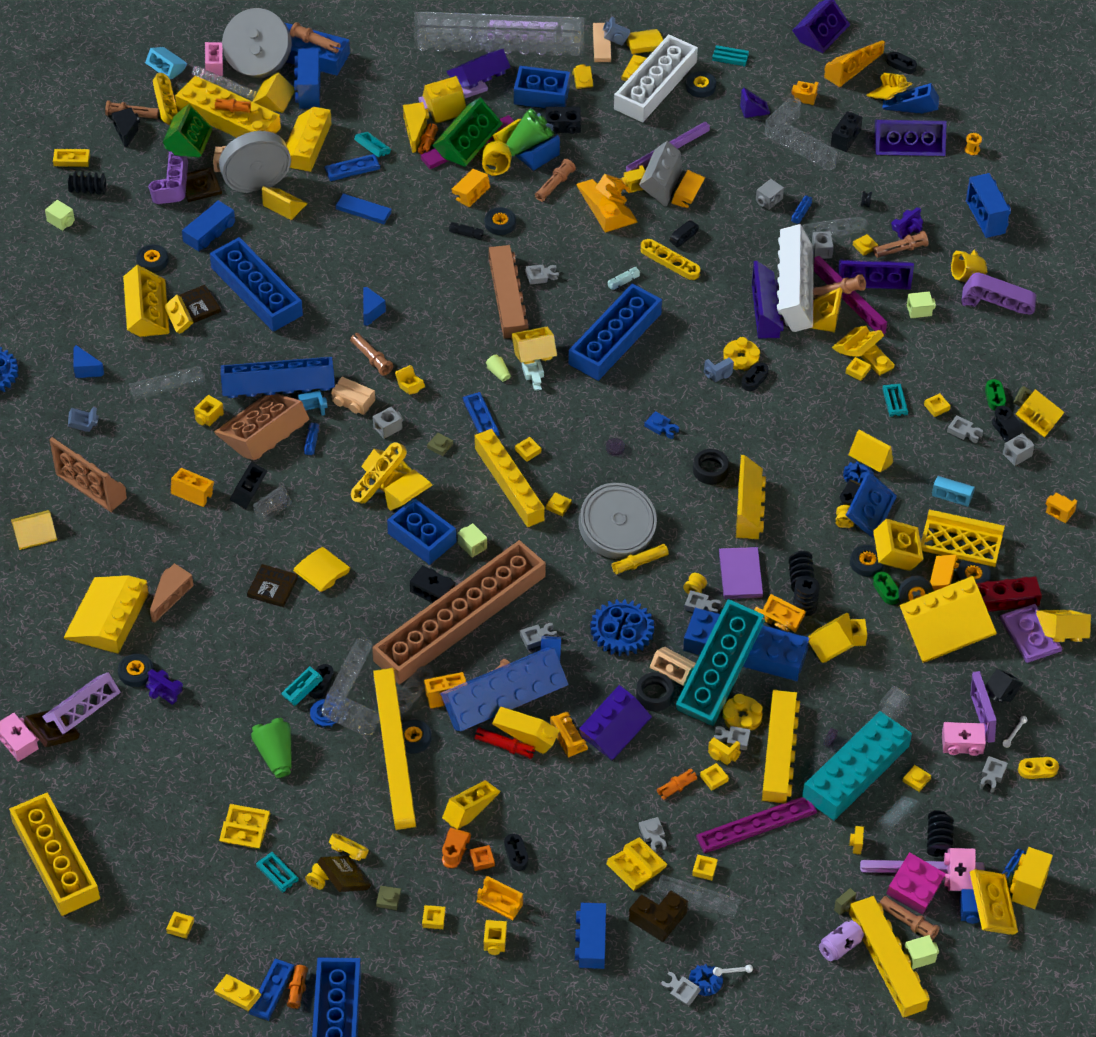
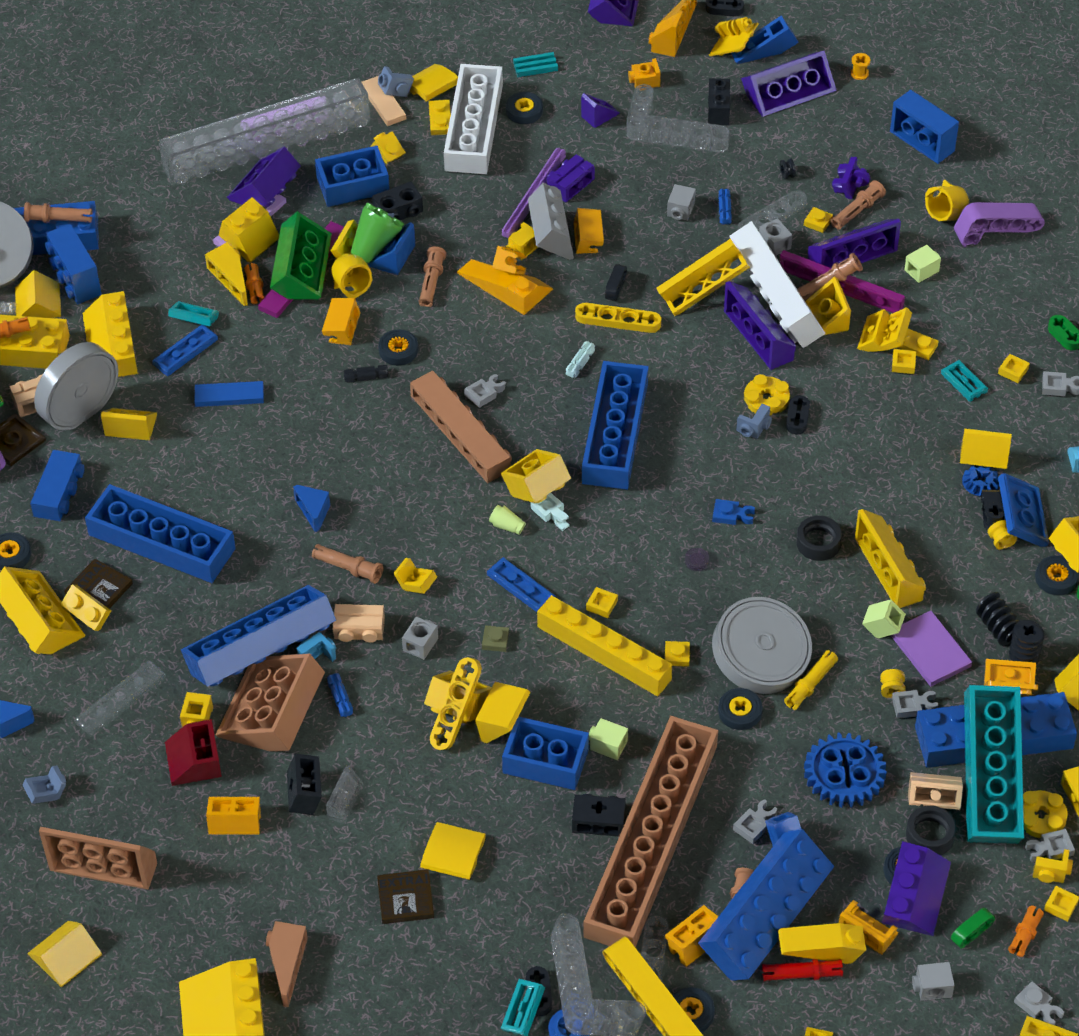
camera: 25 degrees left, 0 degrees up
(191, 437) = (193, 753): none -> dark red slope
(571, 563) = (740, 719): none -> black bush
(589, 787) = (933, 981): none -> light grey brick
(640, 765) = (972, 927): none -> green beam
(700, 147) = (572, 176): none -> dark purple brick
(717, 538) = (884, 619): none -> yellowish green brick
(744, 248) = (701, 274): none -> yellow fence

